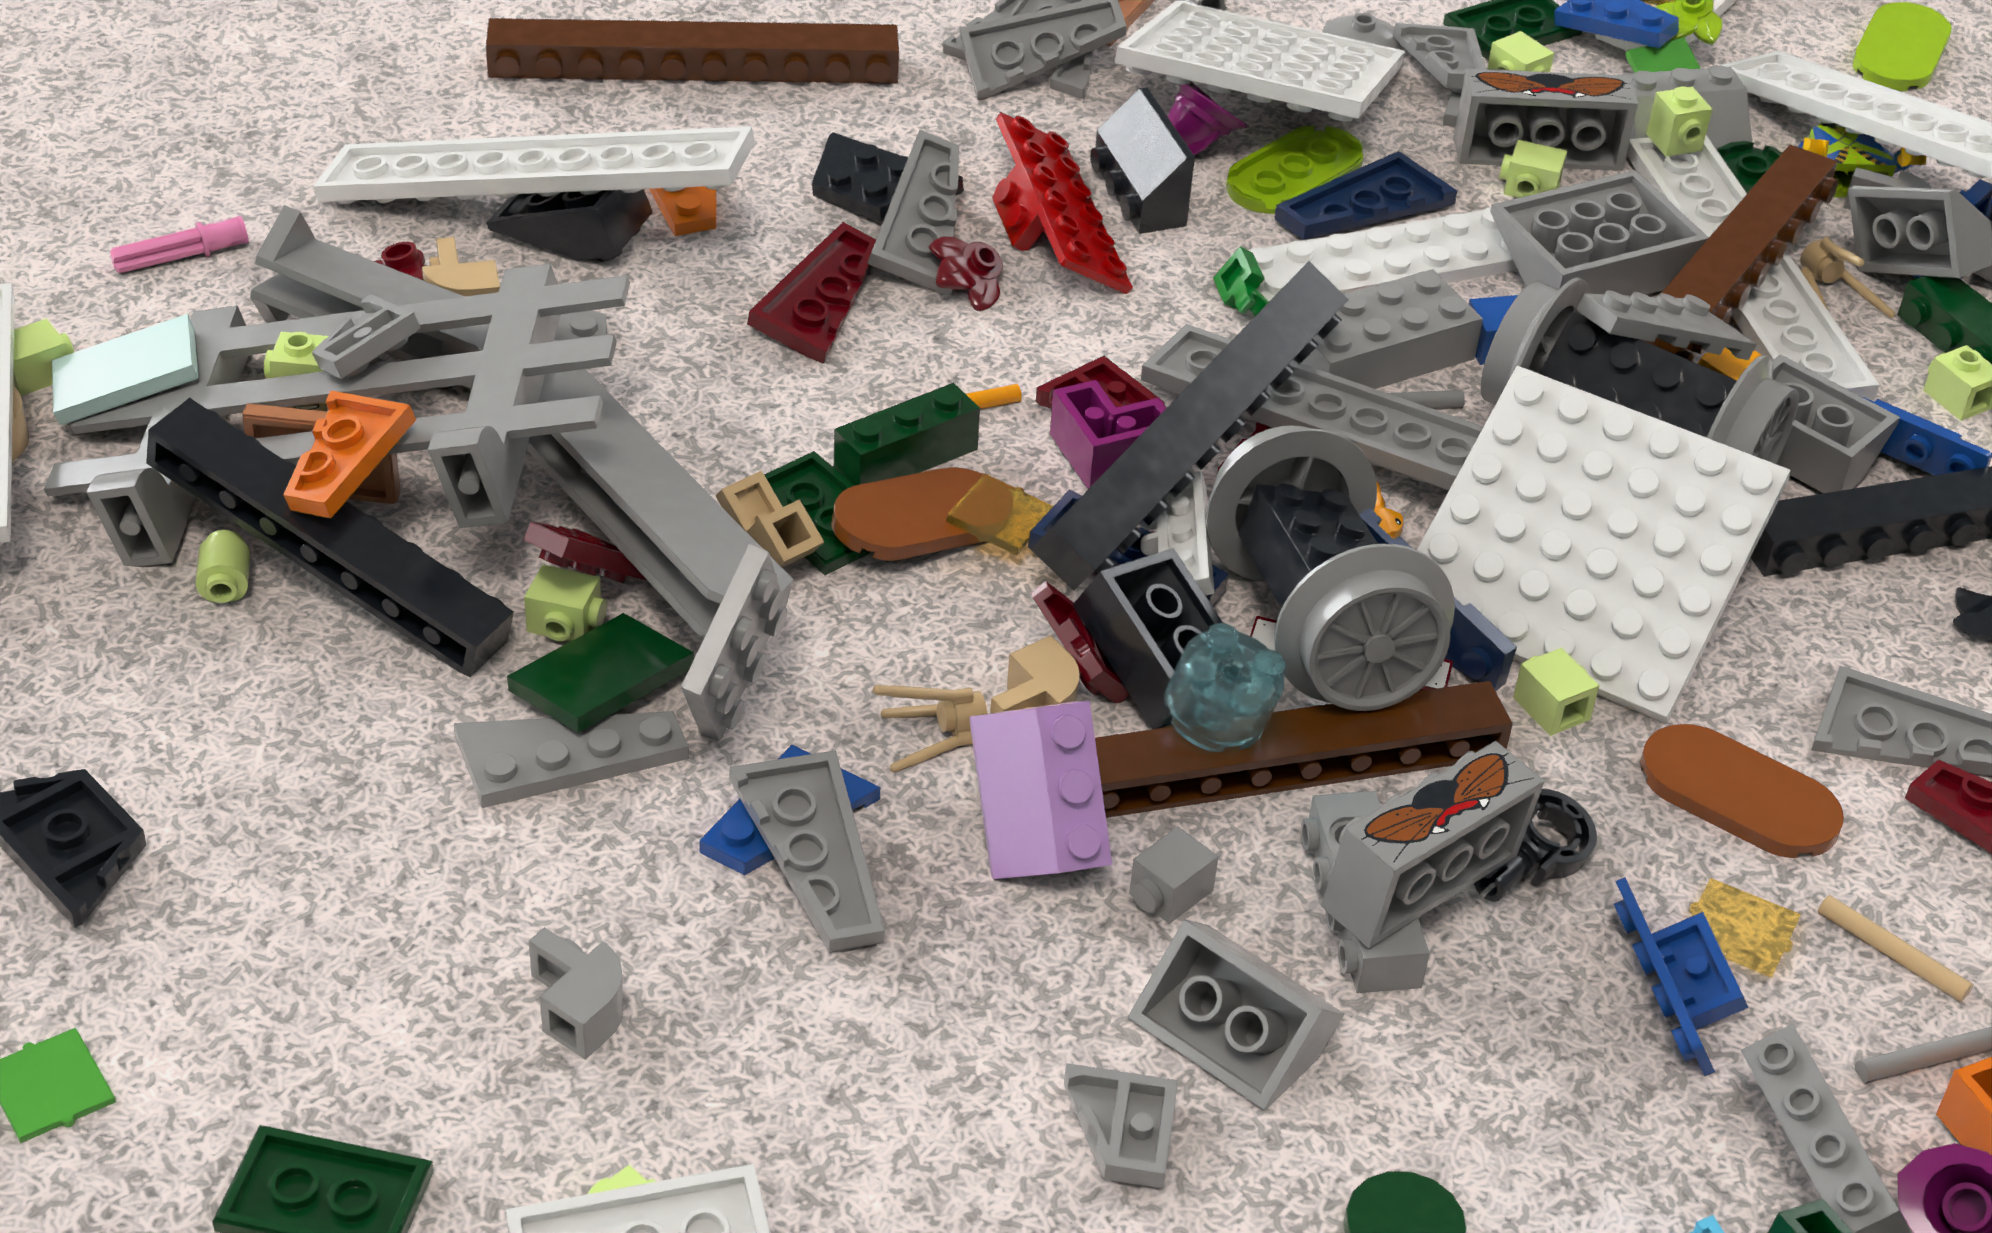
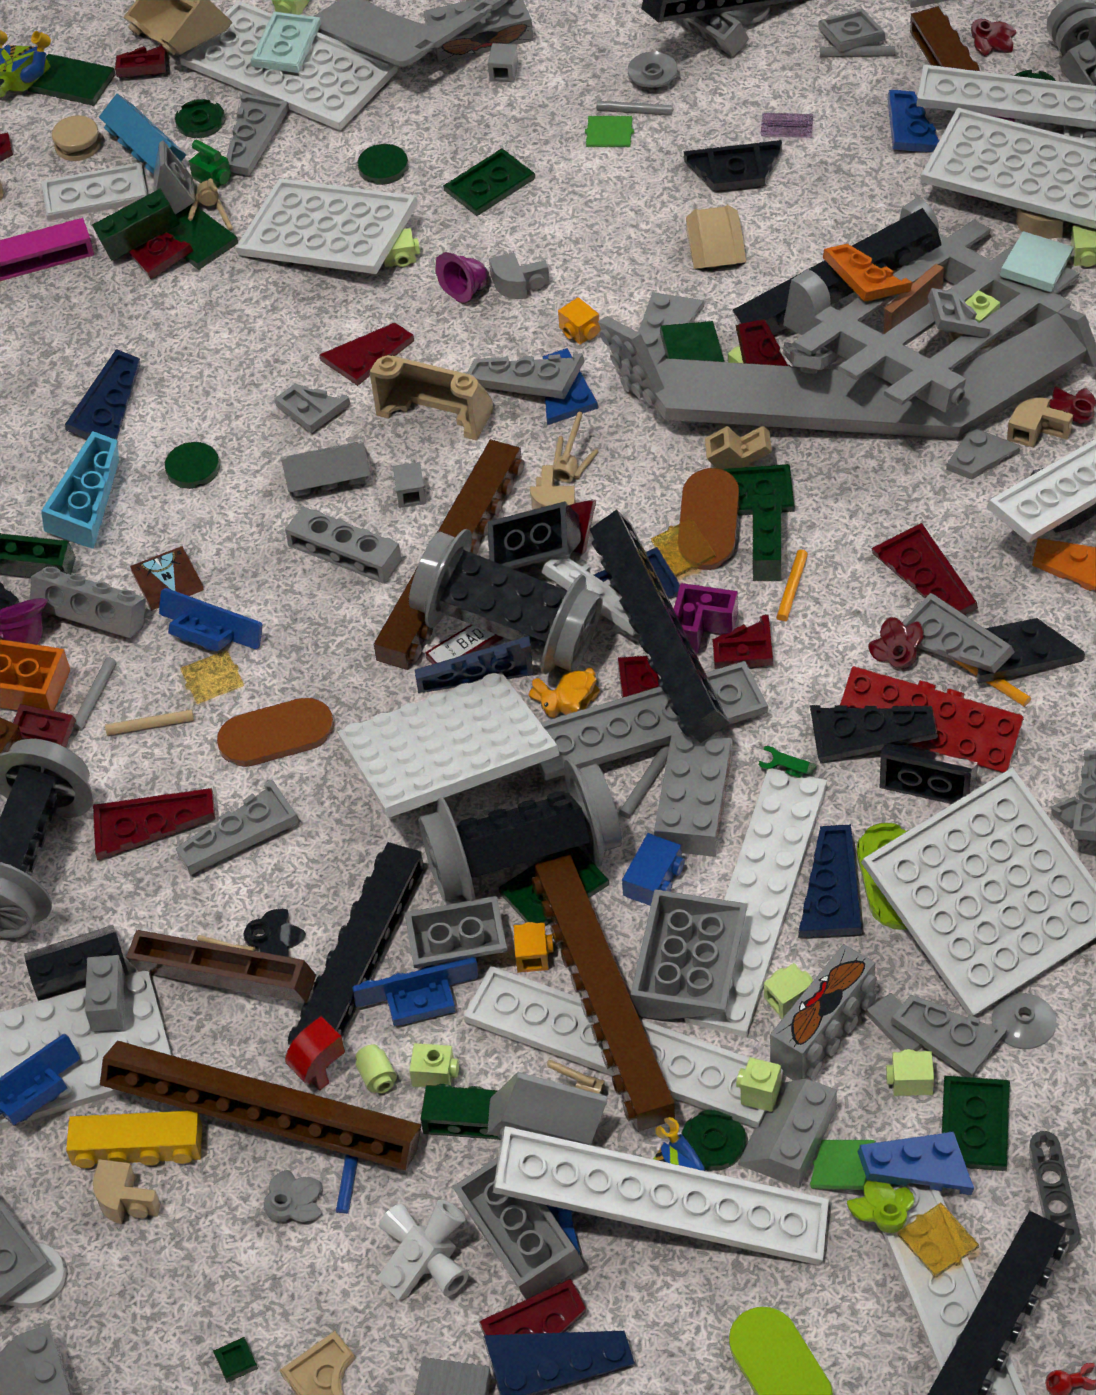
camera: 135 degrees right, 10 degrees up
(292, 774) = (715, 237): none -> tan slope
(563, 462) = (808, 363): none -> light grey wing
(629, 848) = (578, 321): none -> light orange brick
(645, 1055) = (460, 275): none -> magenta piece
(934, 1122) = (358, 356): none -> dark red wing
(977, 968) = (402, 381): none -> tan windscreen
(1040, 790) = (472, 443): lavender slope -> none
(1136, 239) = (857, 731): none -> black wing
(1224, 689) = (470, 511): clear light blue brick -> none
(1430, 843) = (318, 534): light grey brick -> none
(1538, 851) = (310, 618): black pin -> none
(1556, 691) = (387, 691): yellowish green brick -> none
(1649, 1101) = (169, 571): none -> copper tile
(1665, 318) = (547, 868): light grey wing -> none

